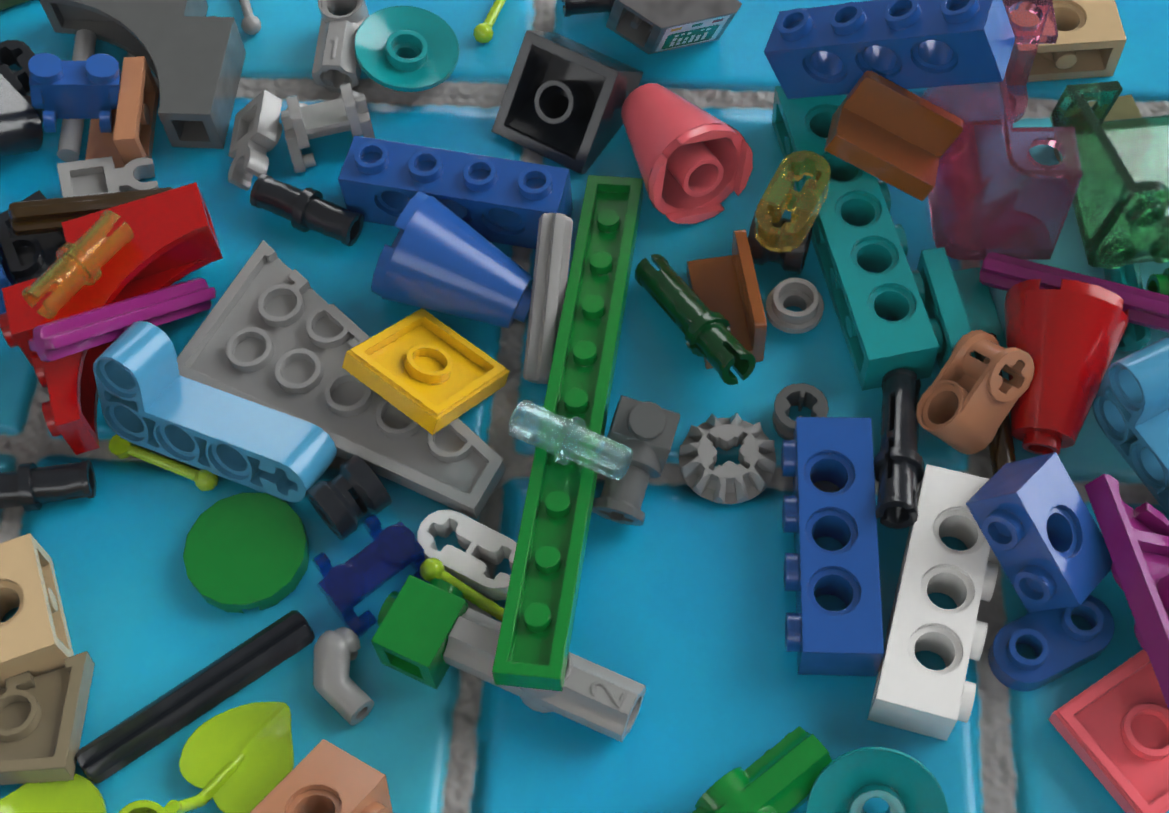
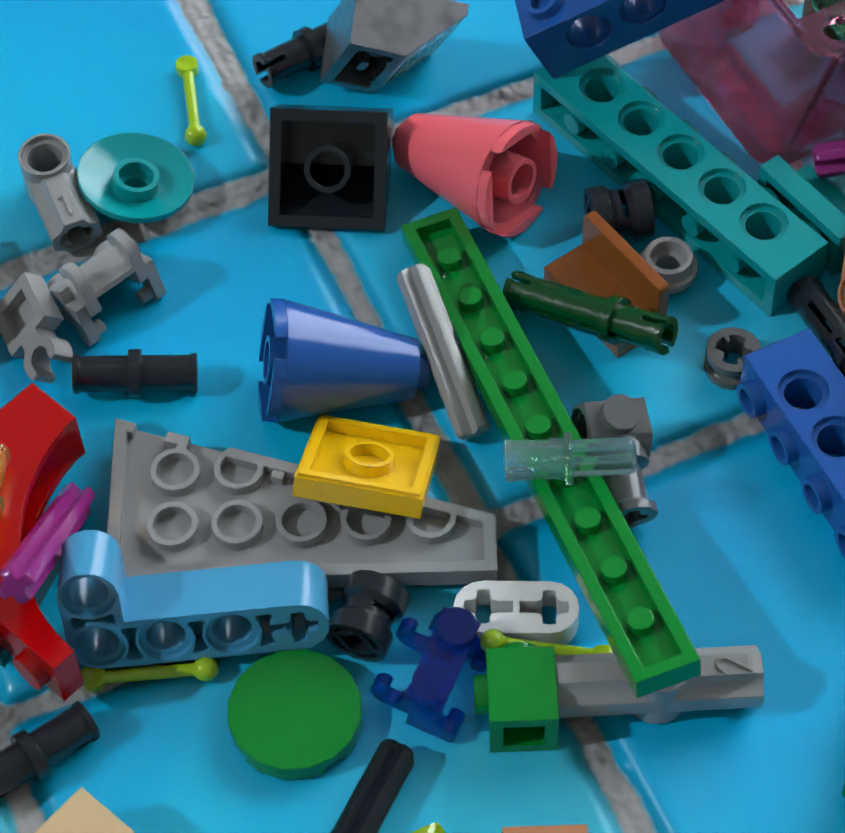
camera: 30 degrees left, 5 degrees down
(332, 674) = (456, 777): light grey arm -> none
(487, 192) = (223, 304): blue brick -> none
(730, 481) = (715, 438): light grey gear -> none
(782, 196) = (611, 168): clear yellow beam -> none
(892, 134) = (674, 71): dark orange panel -> none

